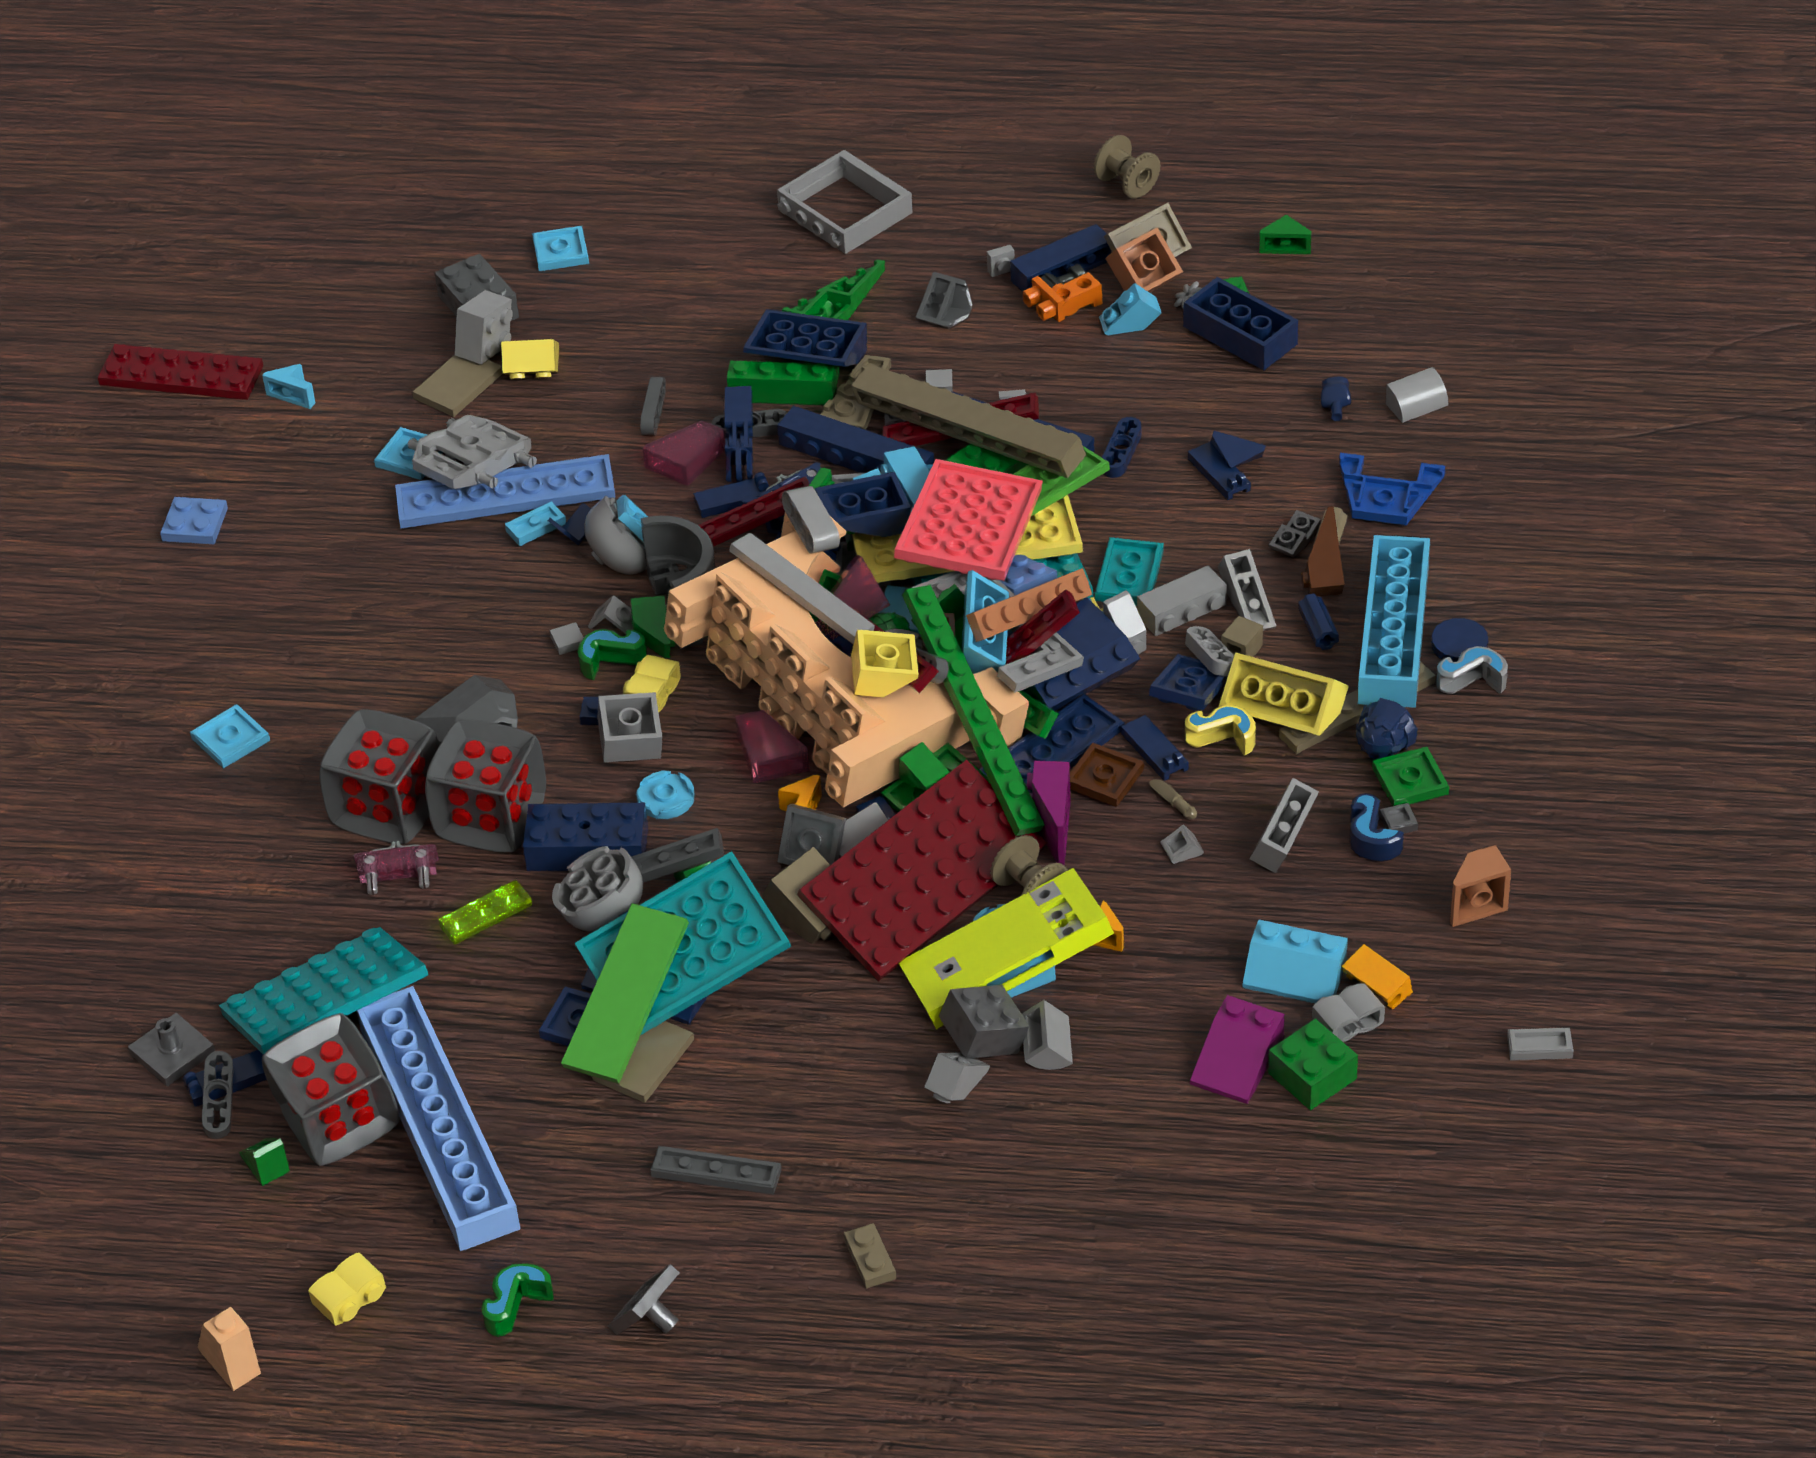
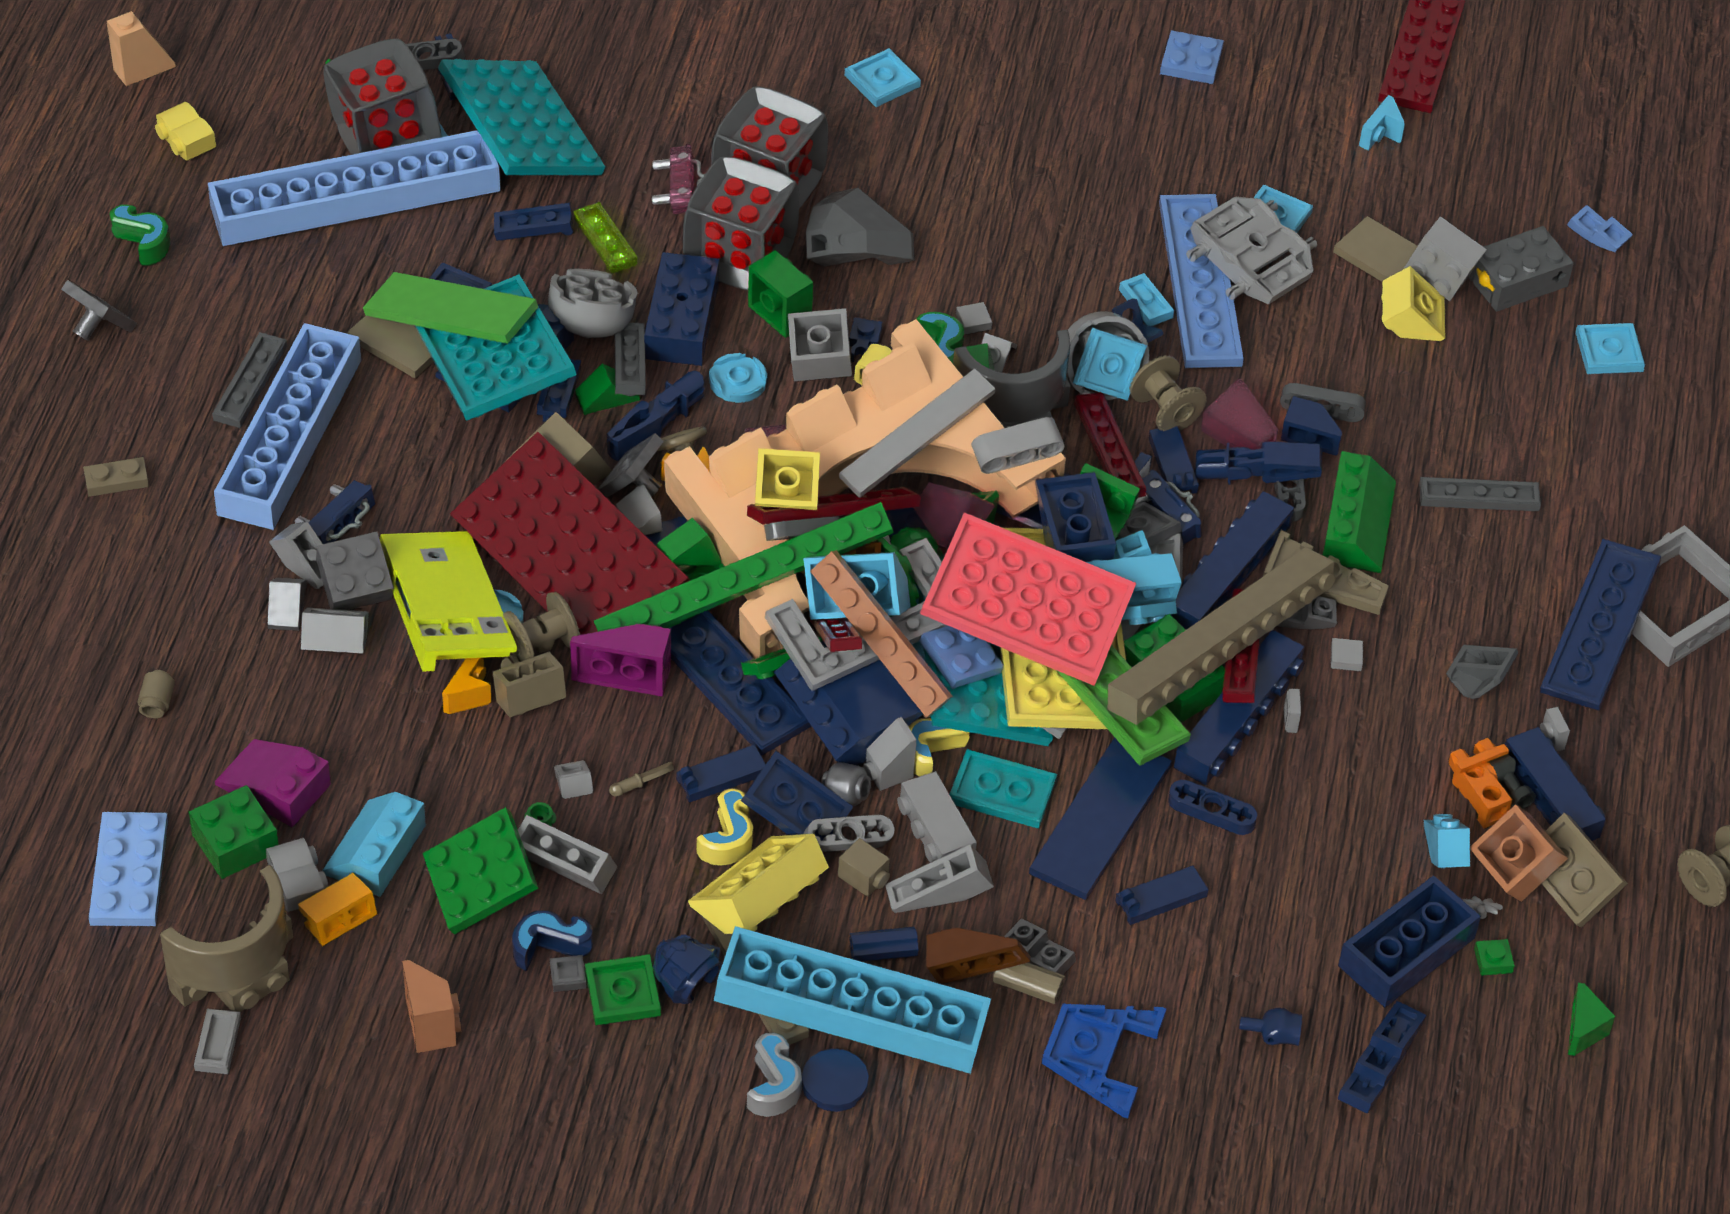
camera: 90 degrees right, 5 degrees up
(171, 1049) = (496, 34): flat silver tile -> none
(417, 256) = (1595, 229): none -> medium blue slope
(467, 972) = (533, 221): none -> dark blue hinge
(571, 757) = (778, 290): none -> green brick
(664, 494) = (1157, 382): none -> dark tan hose
(682, 408) = (1311, 424): none -> dark blue slope
(741, 312) = (1479, 494): none -> dark grey tile
(748, 846) = (652, 417): none -> dark blue arm
(768, 814) = (682, 440): none -> dark tan piece
(791, 1110) = (287, 426): none -> light blue brick
(808, 338) = (1394, 524): dark blue slope -> none
(842, 296) = (1475, 563): green wedge -> none
(891, 232) = (1600, 624): none -> dark blue tile
(896, 1057) = (342, 512): none -> dark blue piece
(1013, 1082) = (286, 603): none -> slope
(1096, 874) = (528, 683): none -> dark tan brick
(1105, 774) = (685, 721): reddish brown plate -> none
(1151, 512) = (1098, 821): none -> dark blue tile
(1155, 657) = (848, 782): none -> flat silver head
(1156, 1159) = (155, 694): none -> dark tan brick
(1236, 450) = (1185, 906): dark blue slope -> none
(1236, 858) = (542, 811): none -> green plate
(1317, 877) = (480, 870): none -> green plate
(1340, 339) = (1381, 1057): none -> dark blue slope
(1366, 1145) = (128, 869): none -> light blue plate
(1416, 395) = (1268, 1109): light grey brick -> none
(1469, 1023) = (236, 969): none -> dark tan piece

